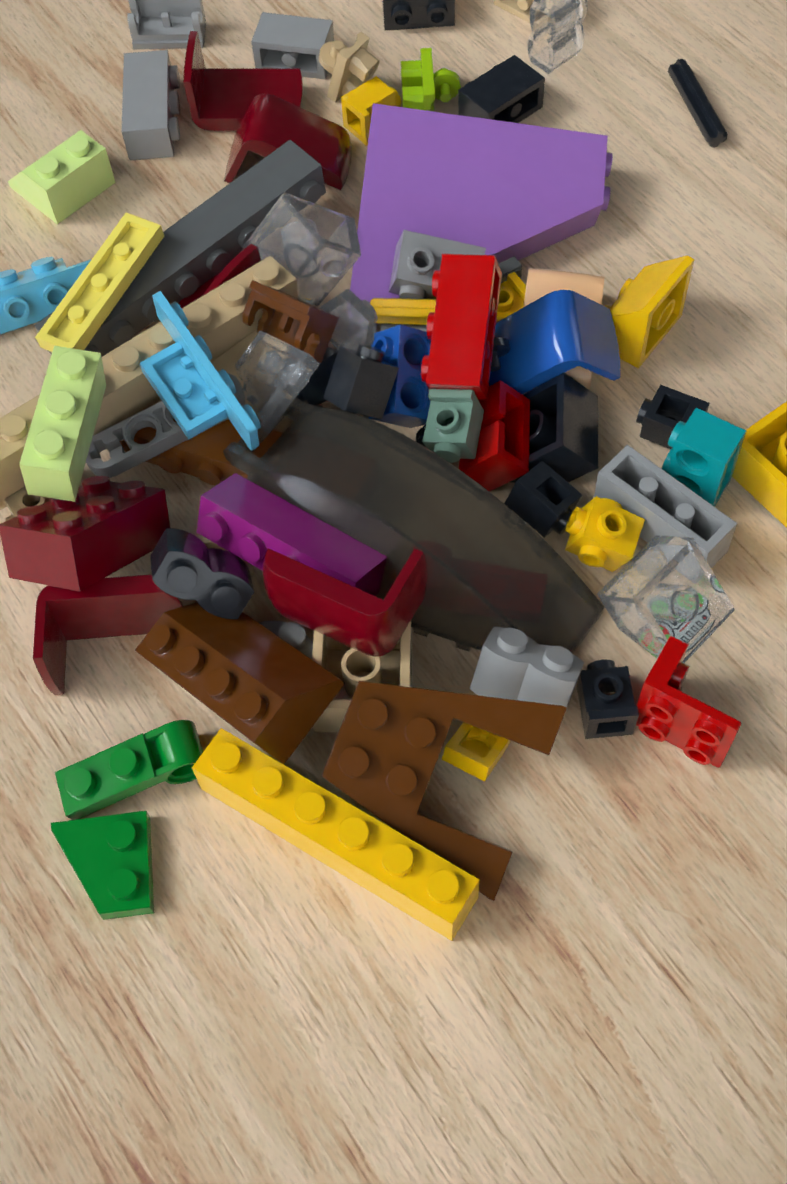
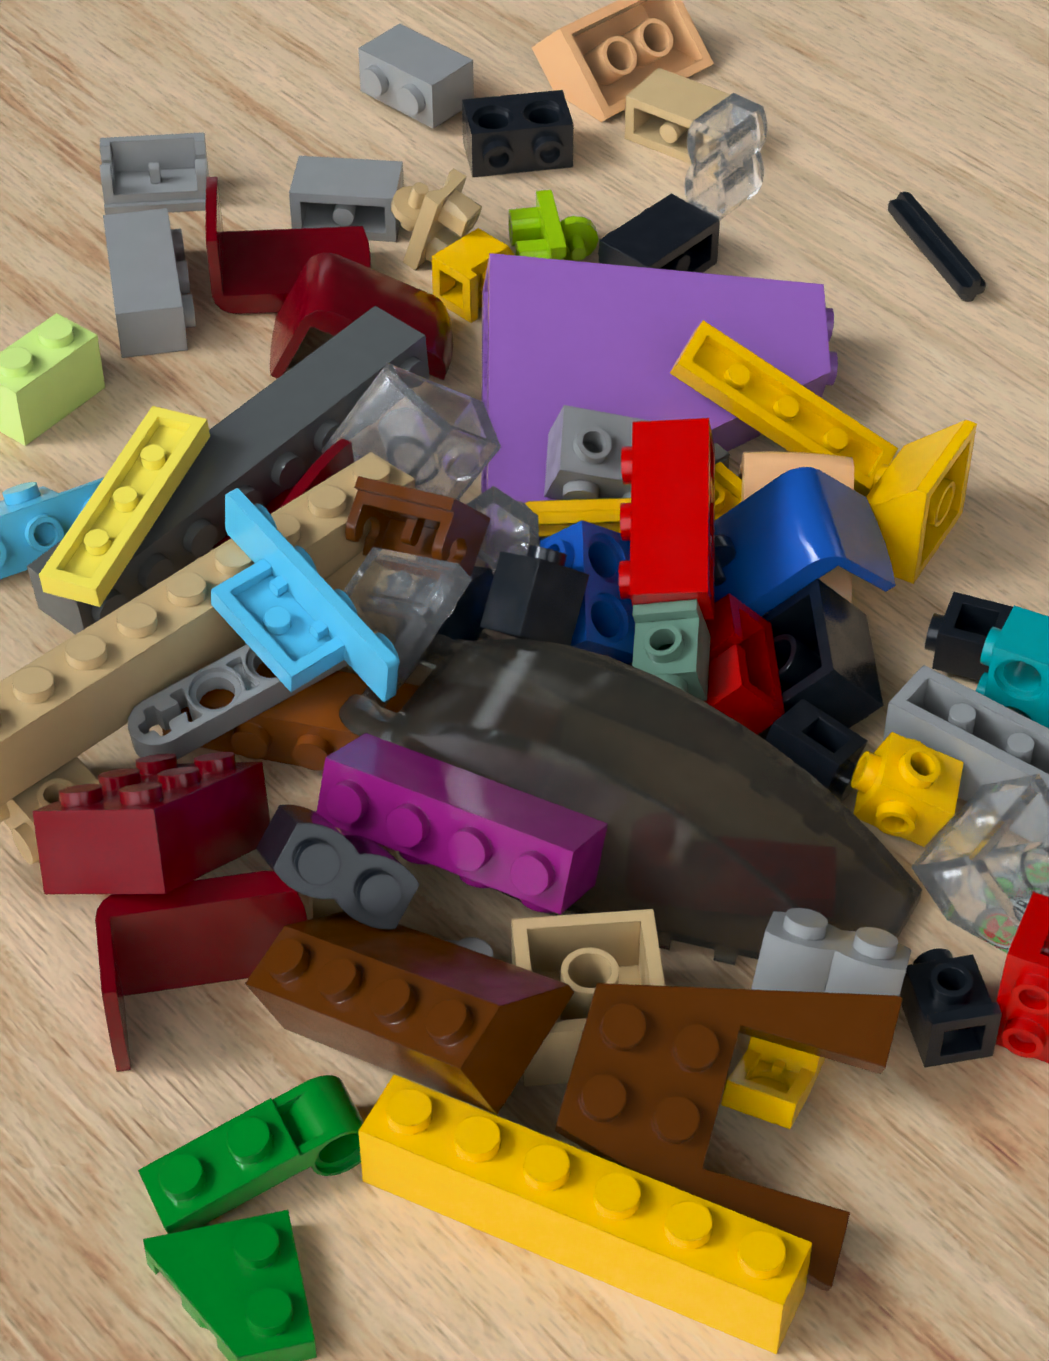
camera: 10 degrees left, 15 degrees down
(63, 424) = (118, 668): yellowish green brick -> none
(342, 609) = (554, 884): dark red piece -> none
(562, 232) = (777, 404): none -> yellow plate

